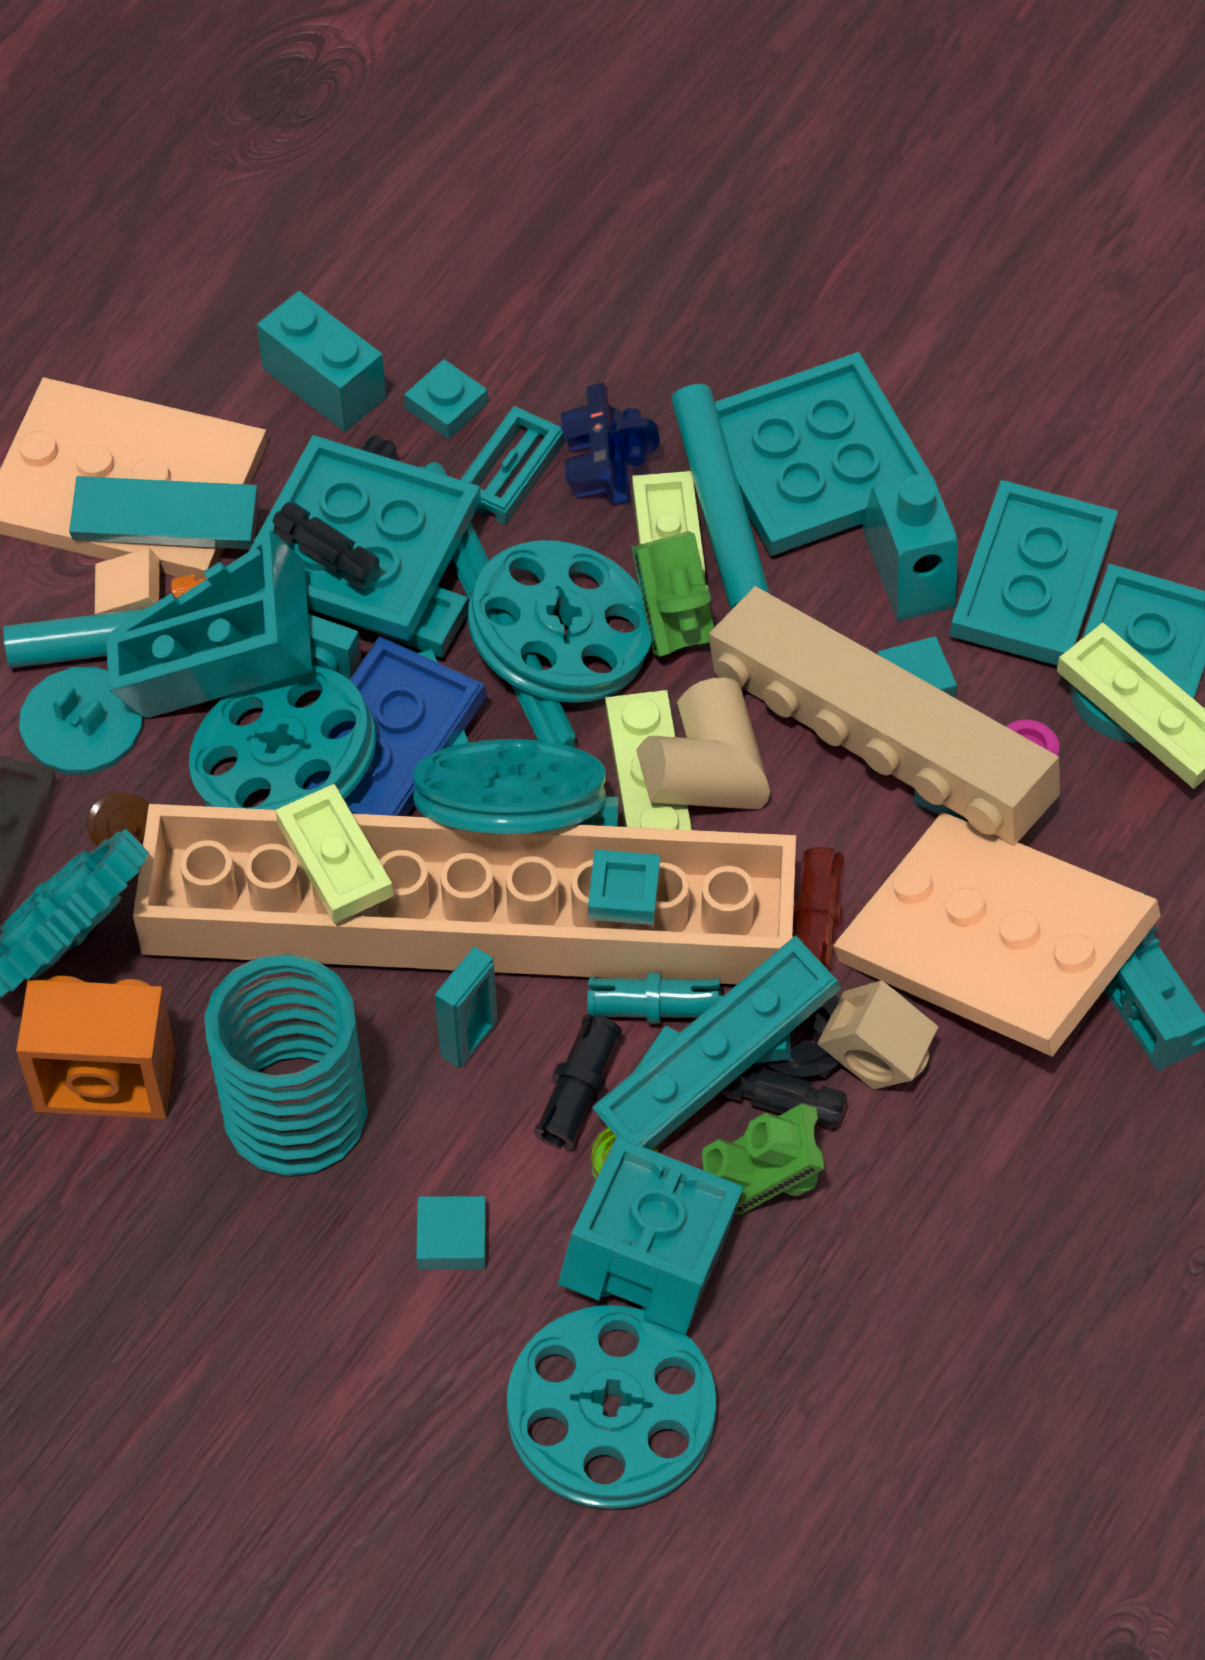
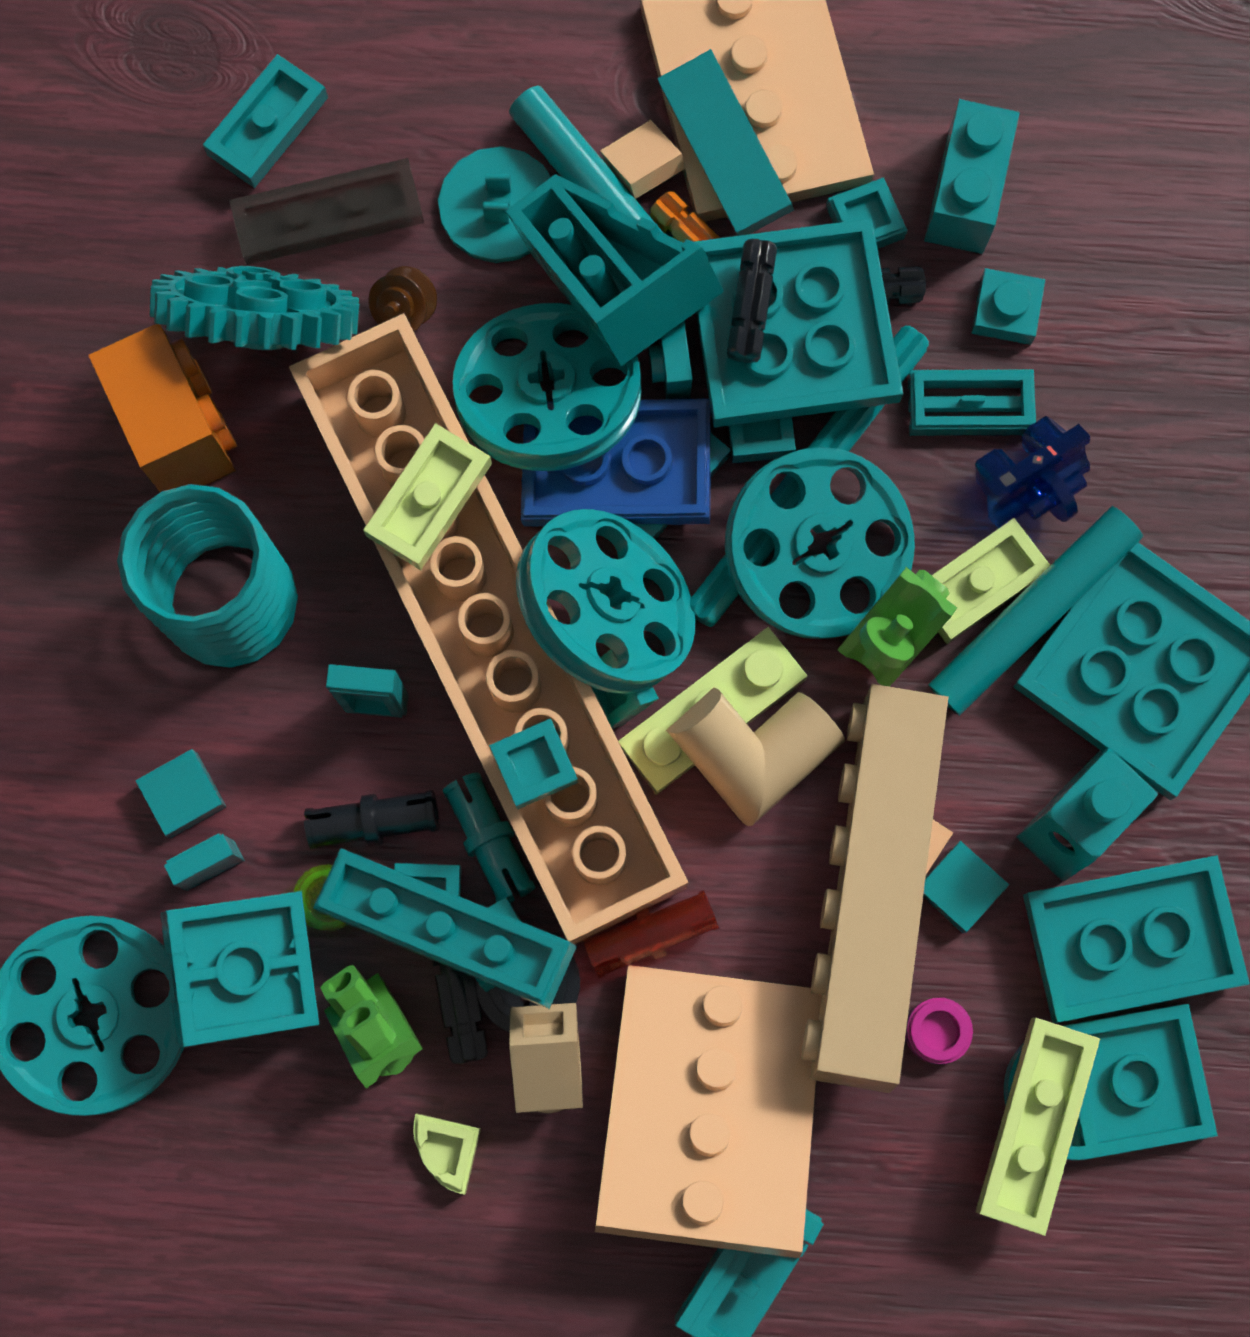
camera: 60 degrees right, 20 degrees up
(284, 452) = (867, 202): none -> teal tile
(530, 1233) = (203, 861): none -> teal tile
(910, 1172) = (446, 1150): none -> yellowish green tile

